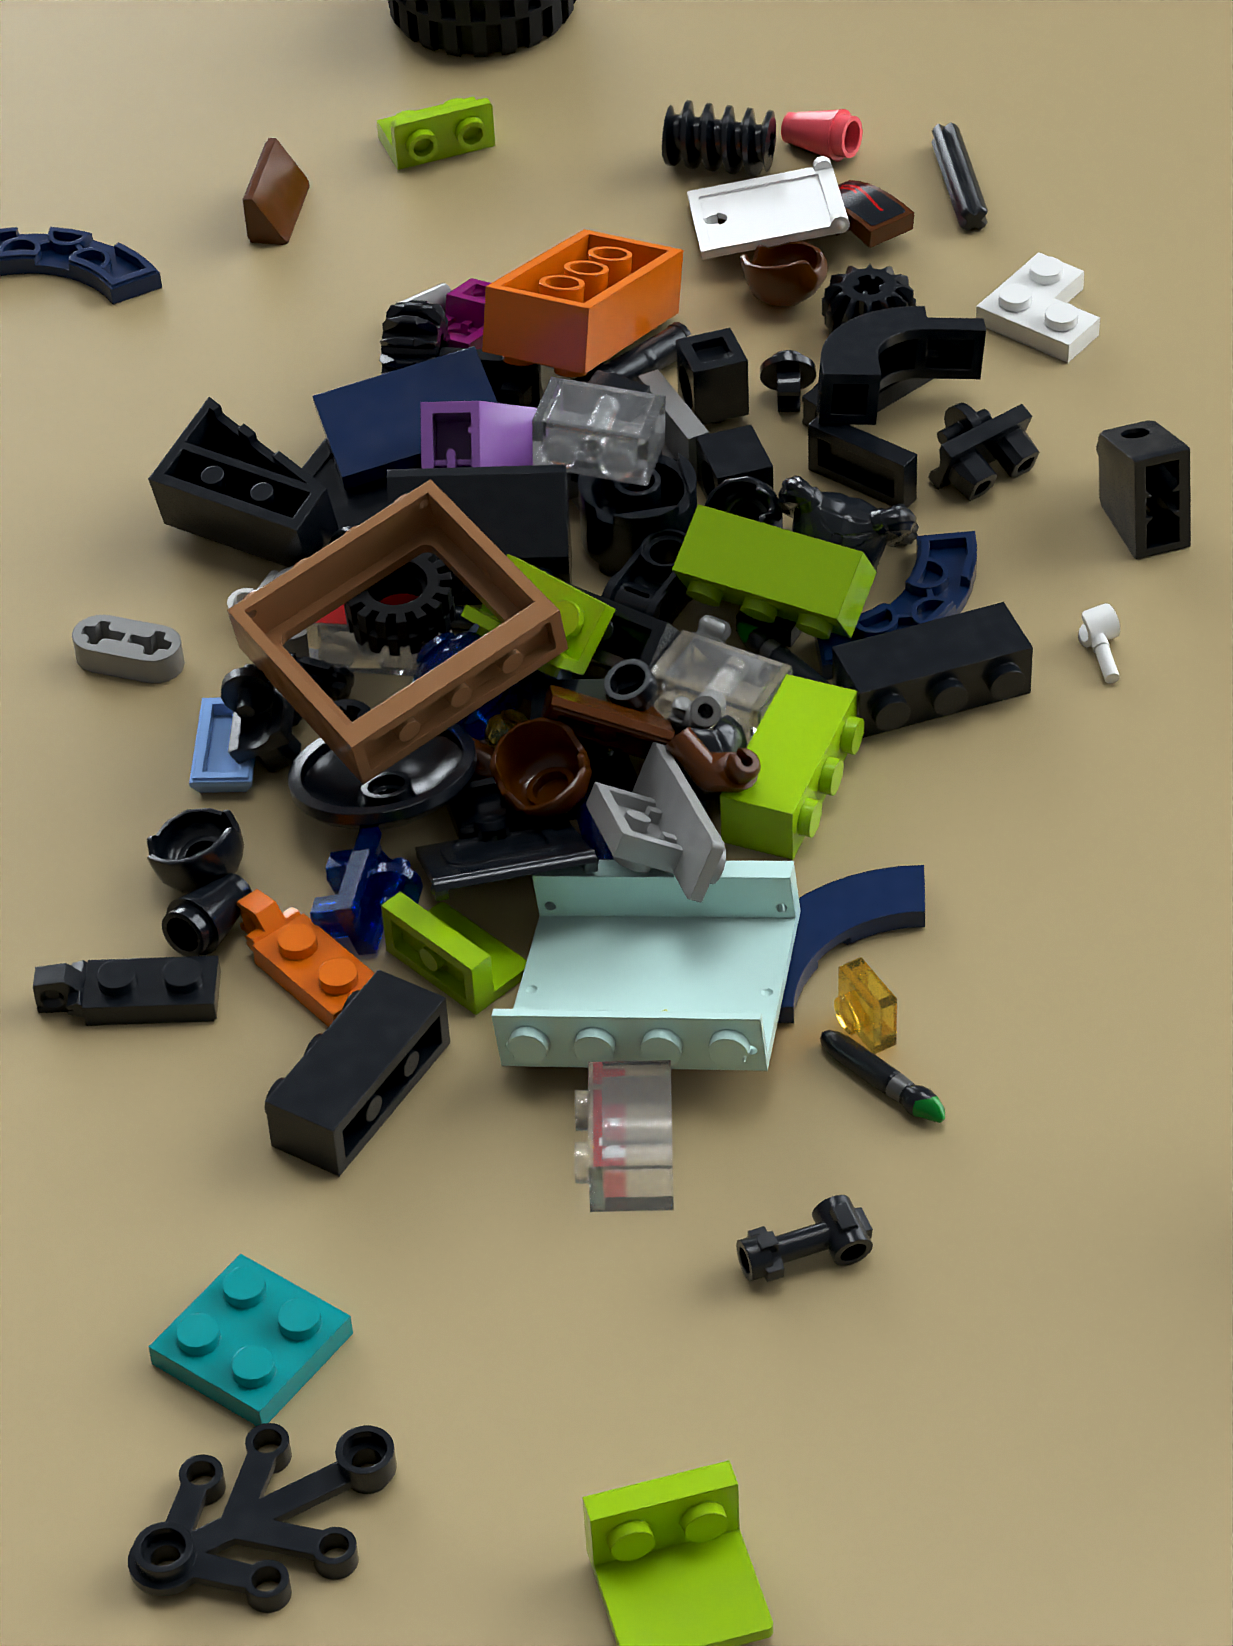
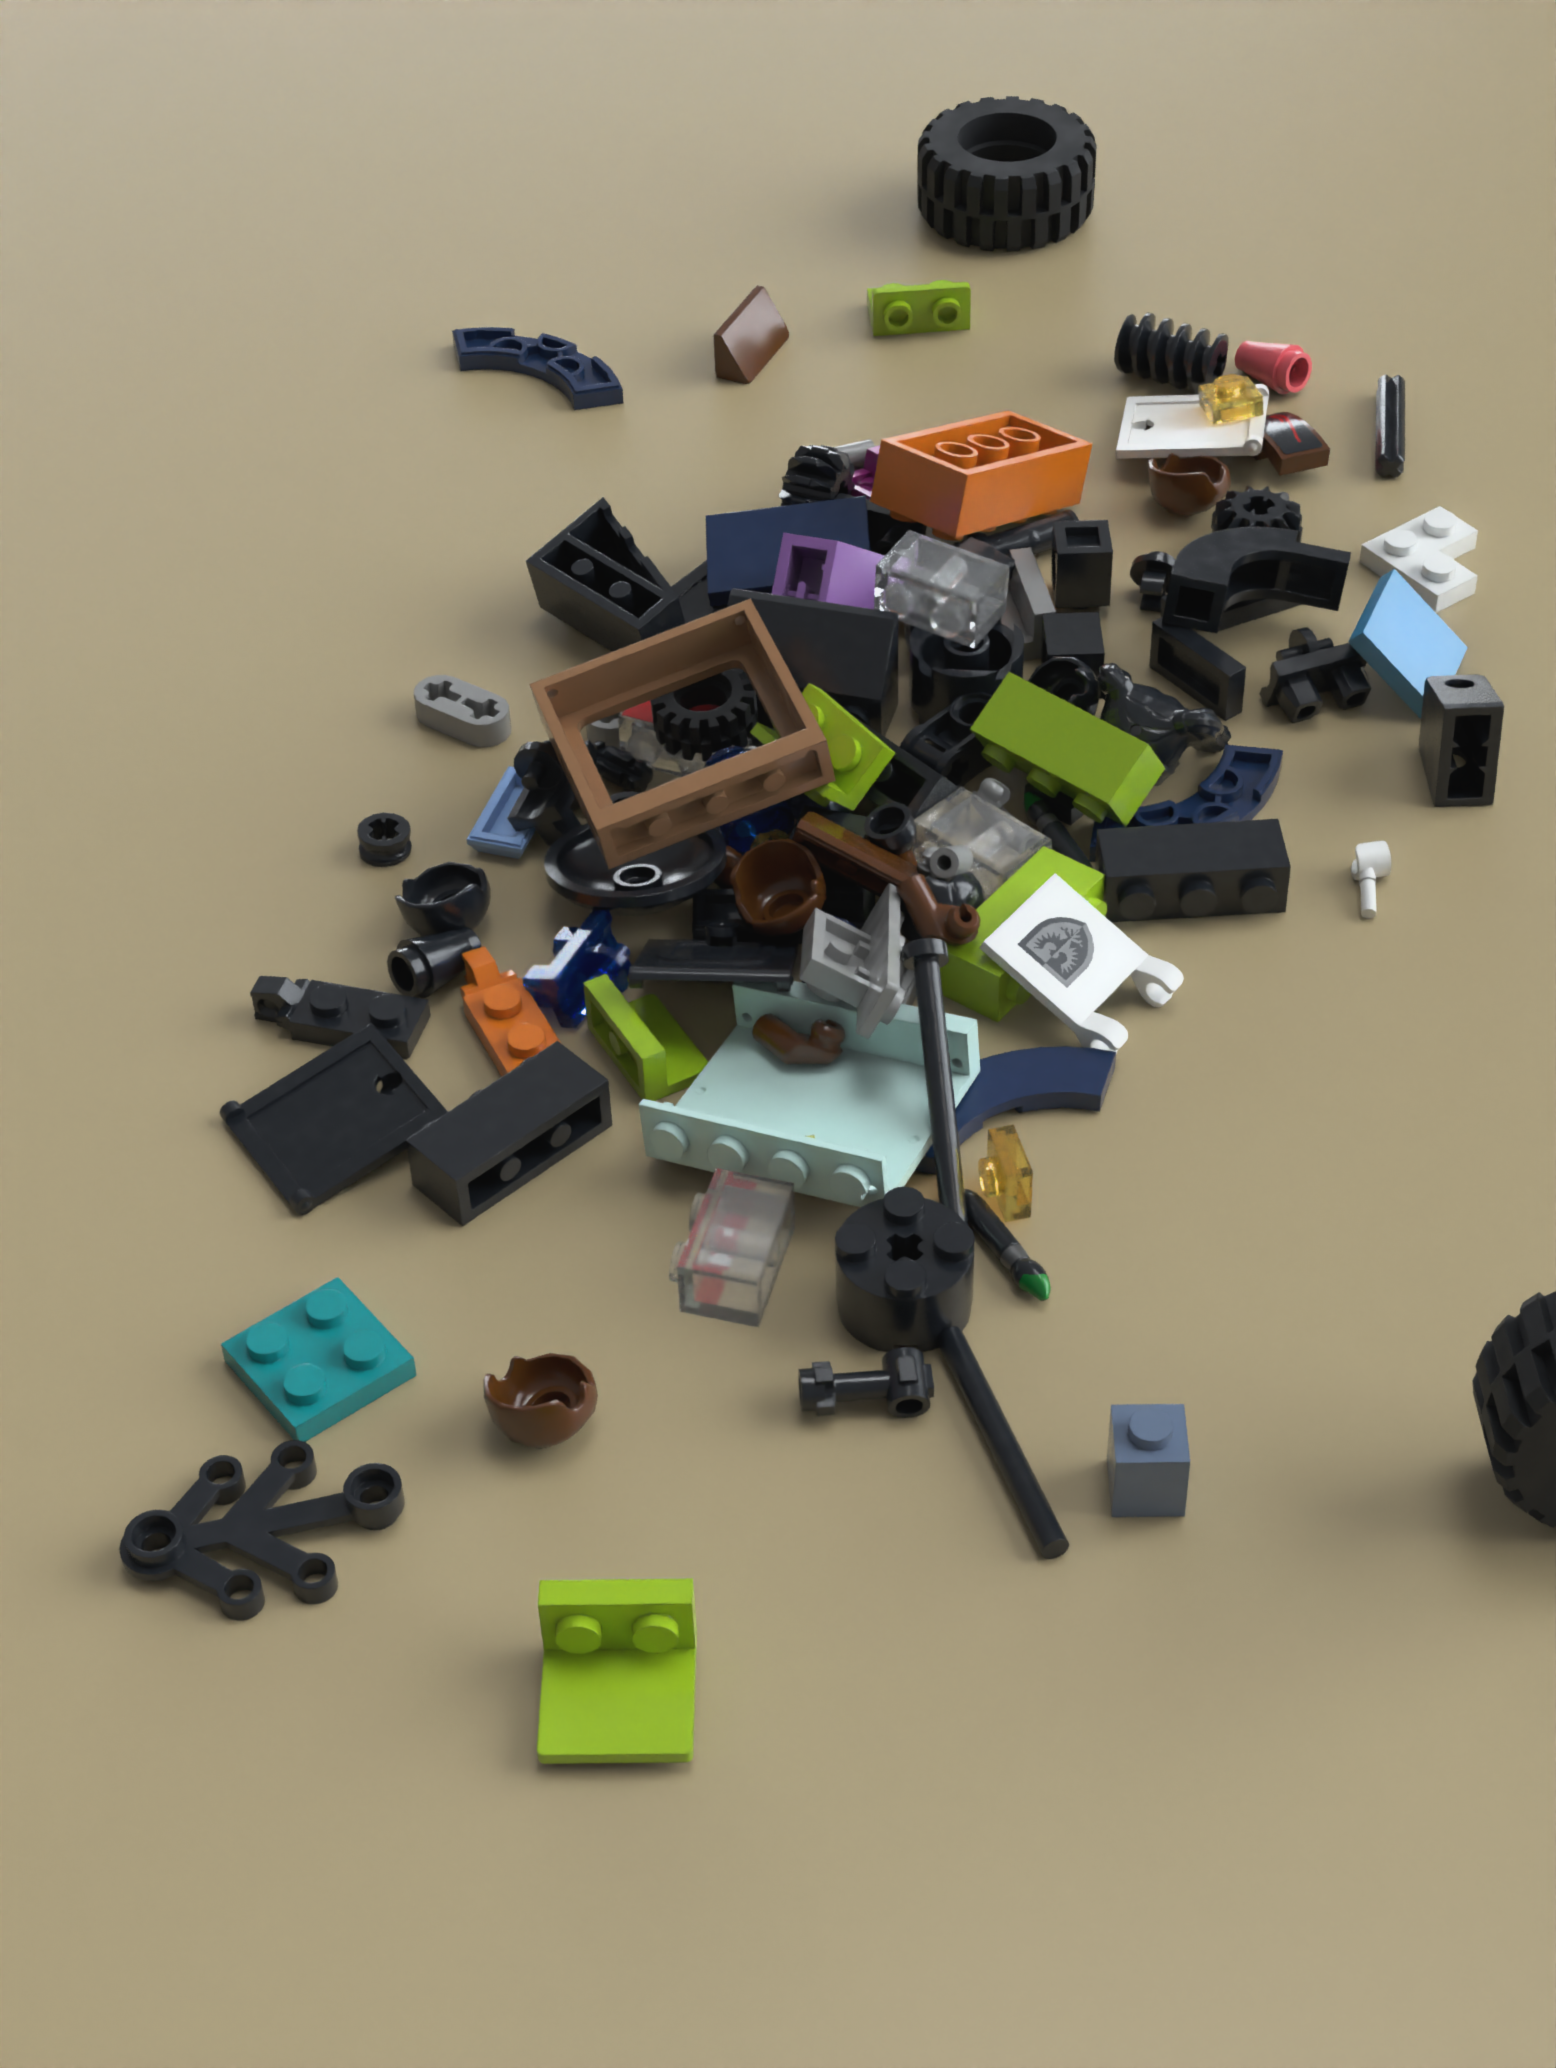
camera: 15 degrees right, 0 degrees up
(99, 813) = (384, 852): none -> black bush
(164, 1106) = (330, 1122): none -> black container
(498, 1326) = (541, 1399): none -> reddish brown hair
(618, 926) = (790, 1047): none -> reddish brown arm
(730, 811) = (925, 959): none -> black bar
(799, 178) = (1230, 399): none -> clear yellow plate
(805, 1124) = (903, 1271): none -> black brick
(860, 784) = (1076, 961): none -> white flag
(952, 1266) = (1002, 1443): none -> black bar
(1060, 399) = (1405, 640): none -> tile
(1101, 1251) = (1148, 1460): none -> sand blue brick

